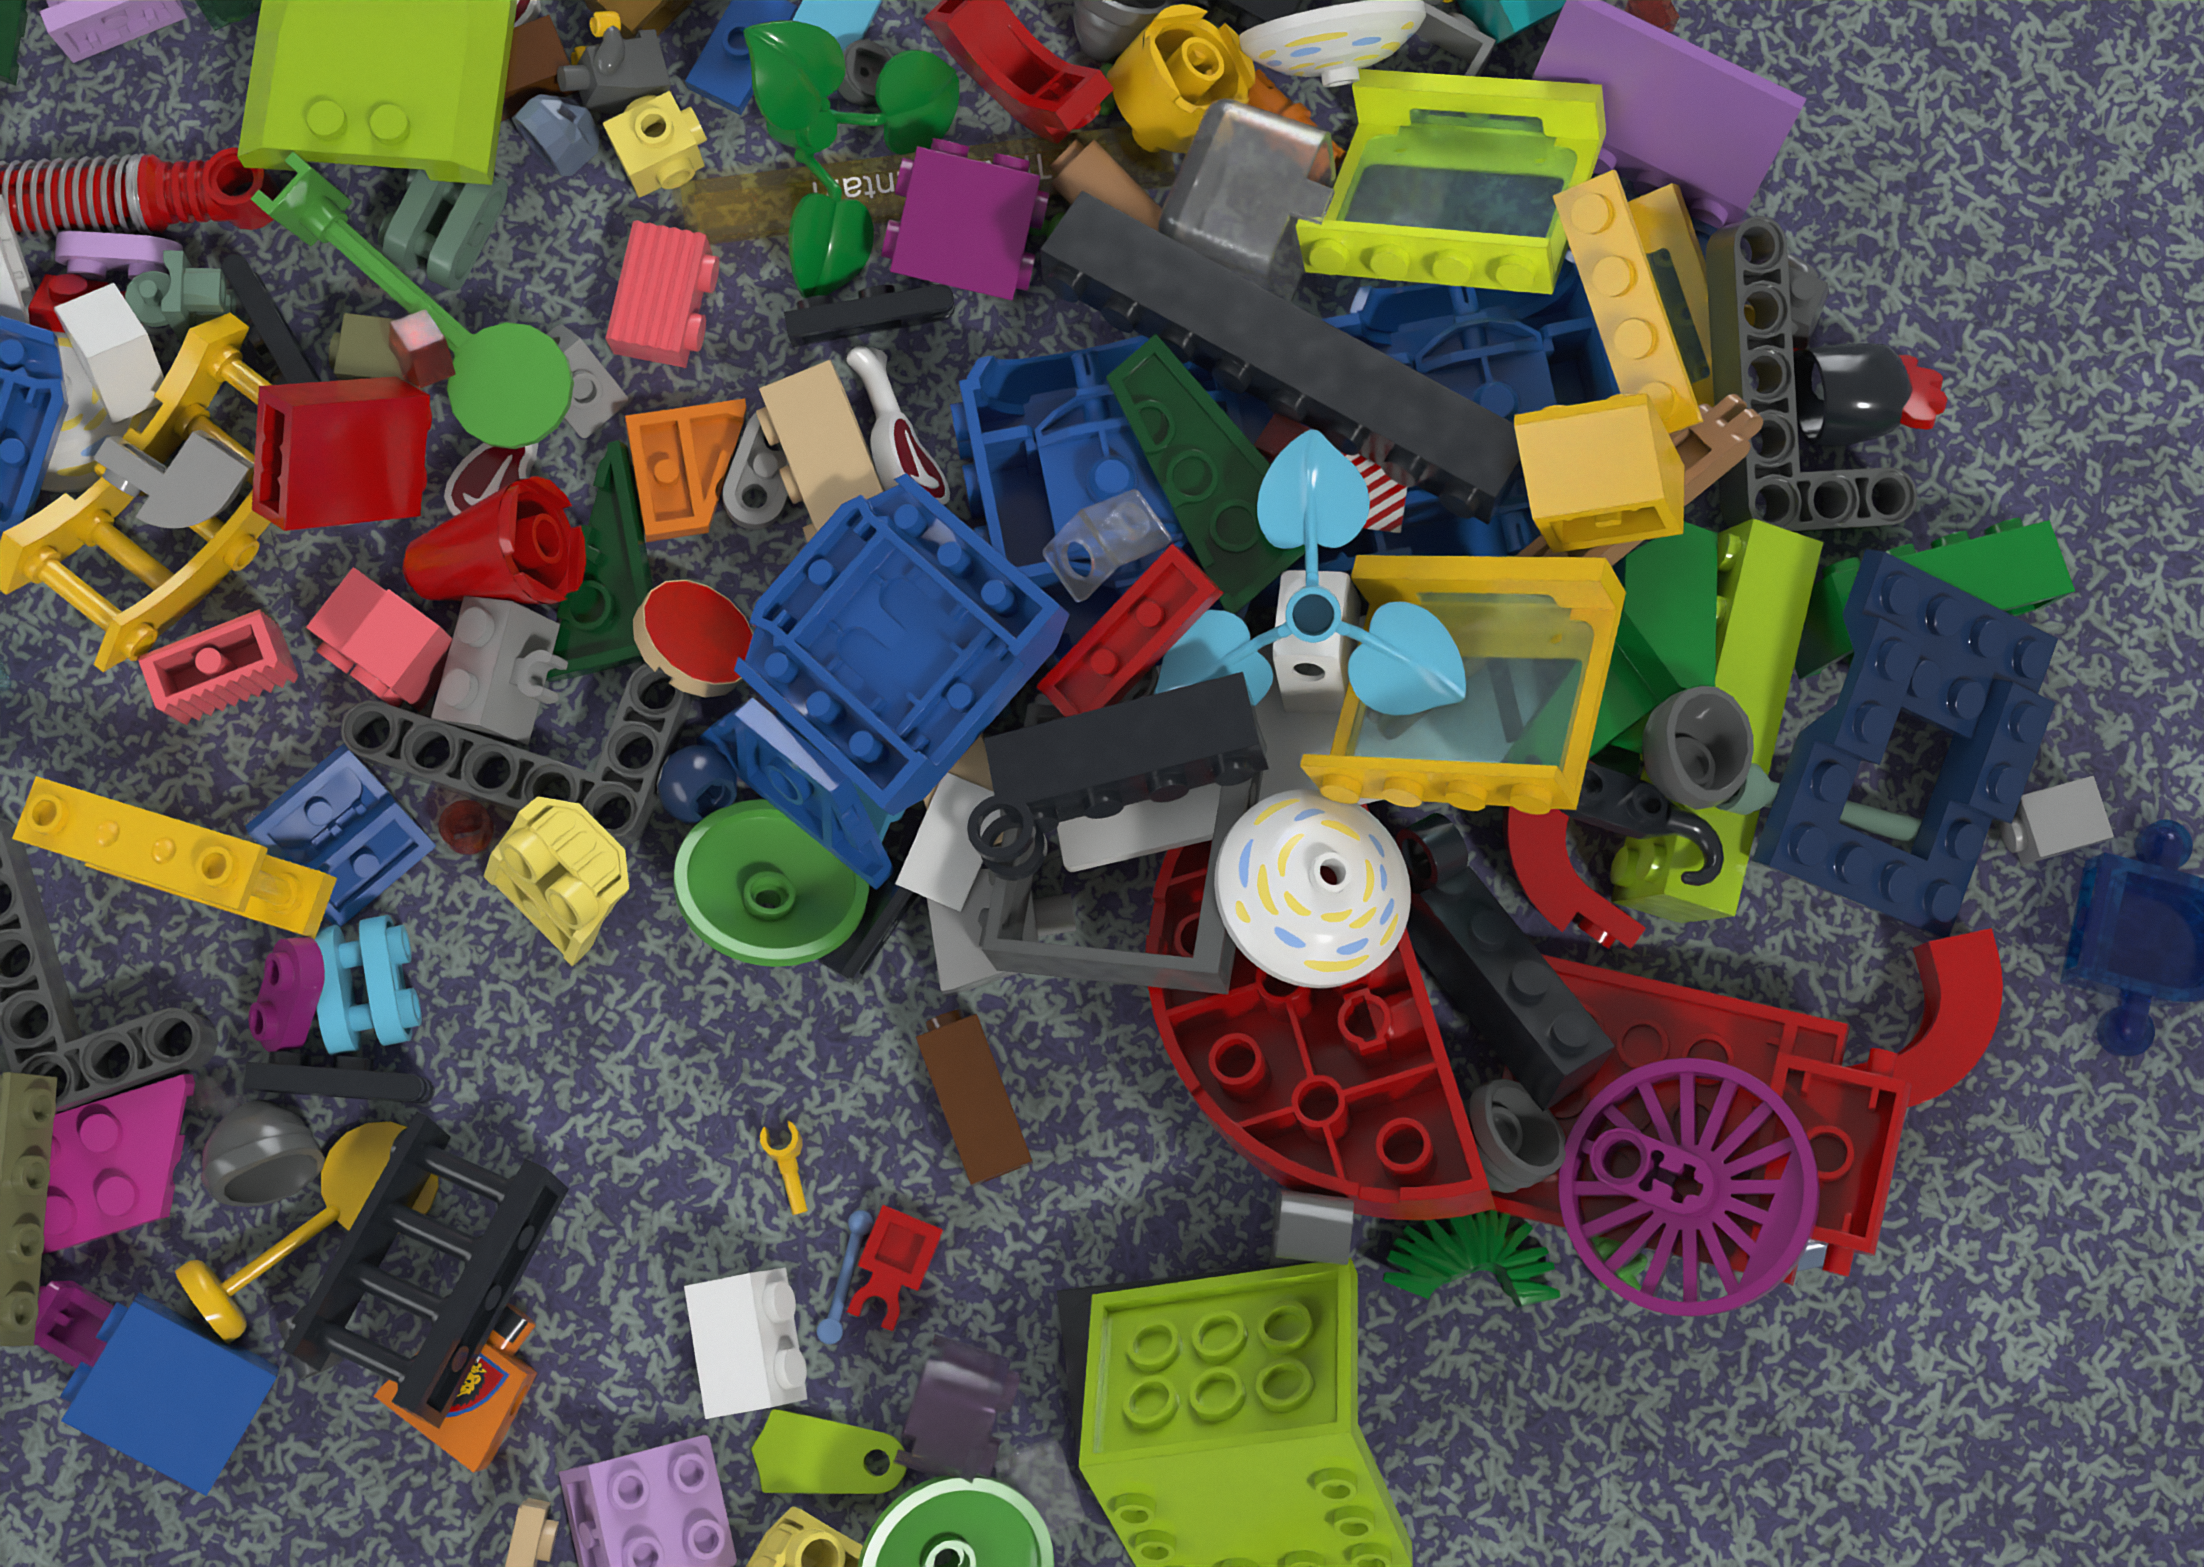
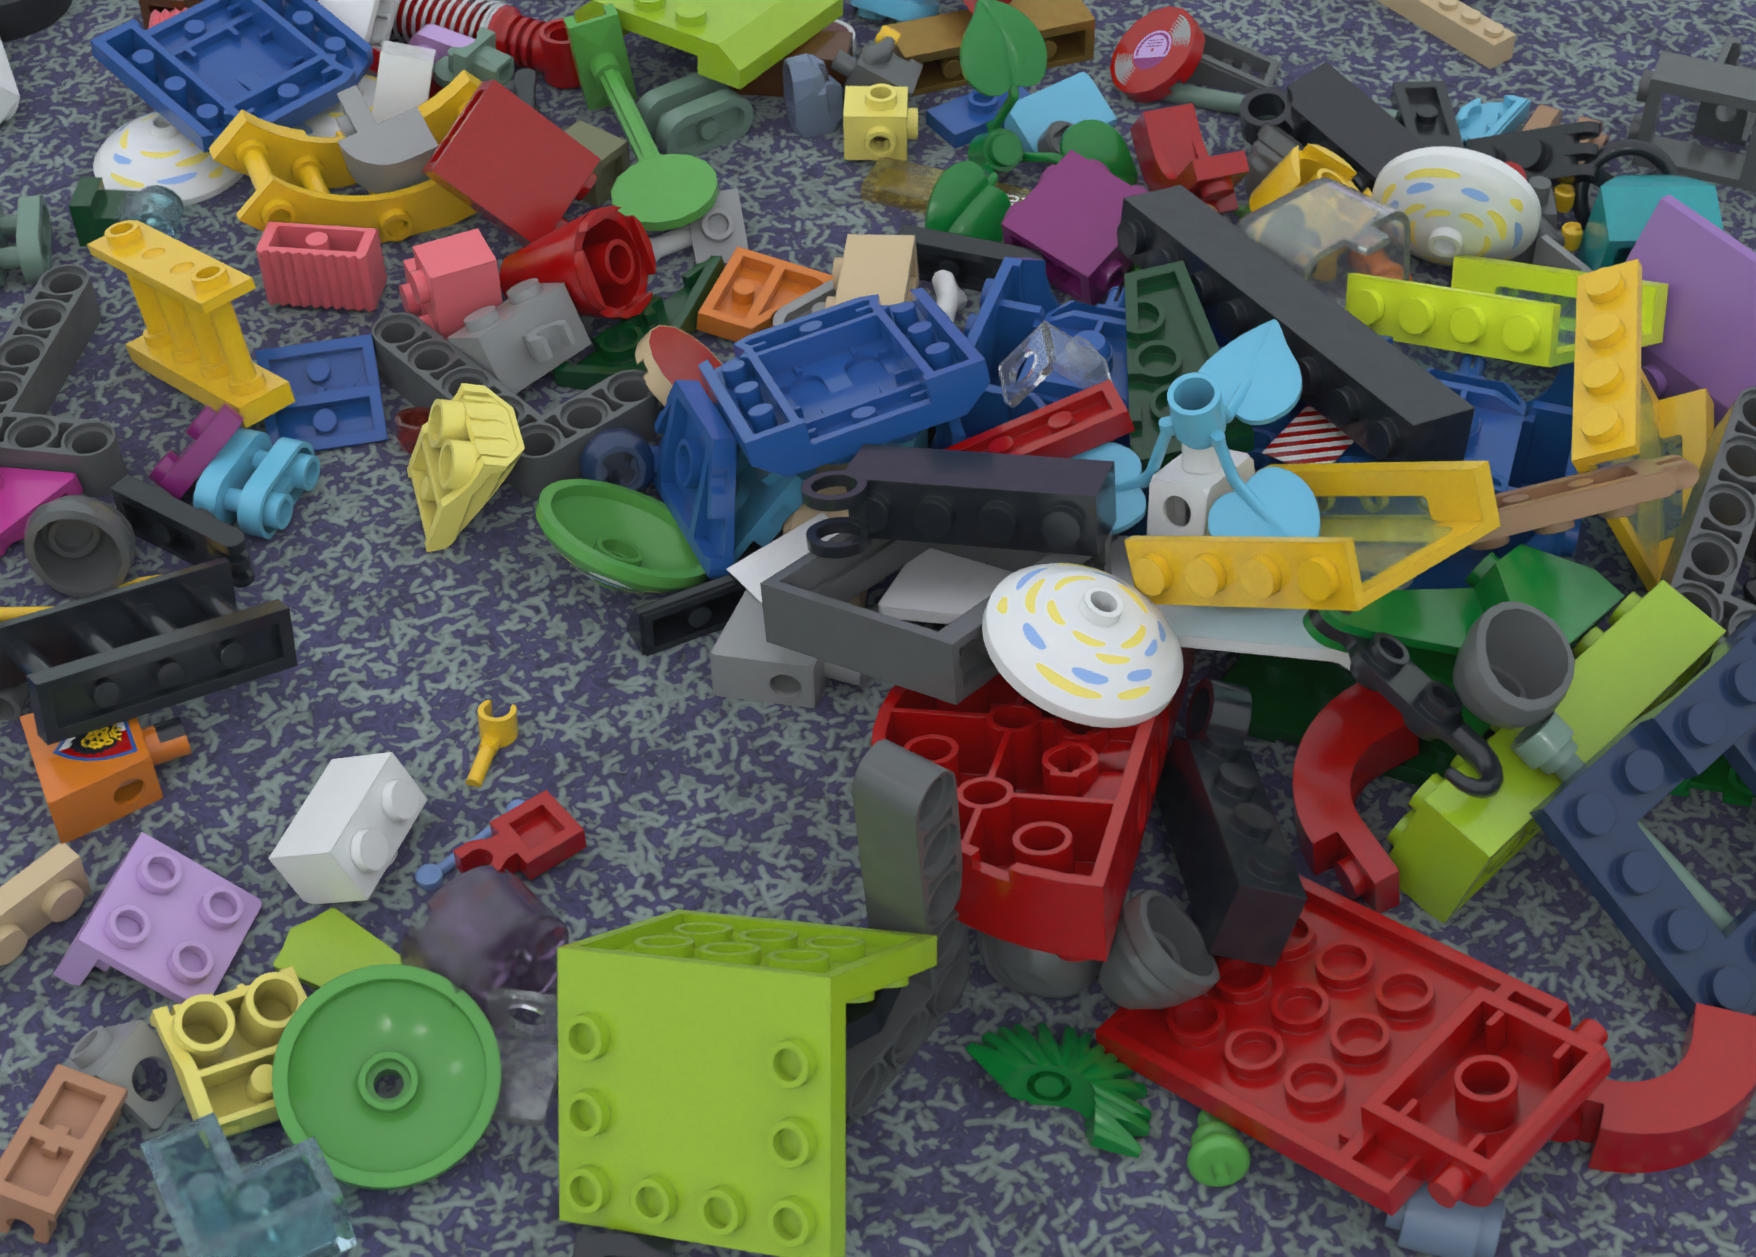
camera: 30 degrees right, 35 degrees down
(420, 349) = (616, 141): clear red piece -> none
(661, 294) = (817, 202): coral brick -> none
(973, 1097) = (682, 757): reddish brown brick -> none
(1601, 473) = (1531, 424): yellow slope -> none
(1785, 1226) = (1281, 1042): magenta piece -> none

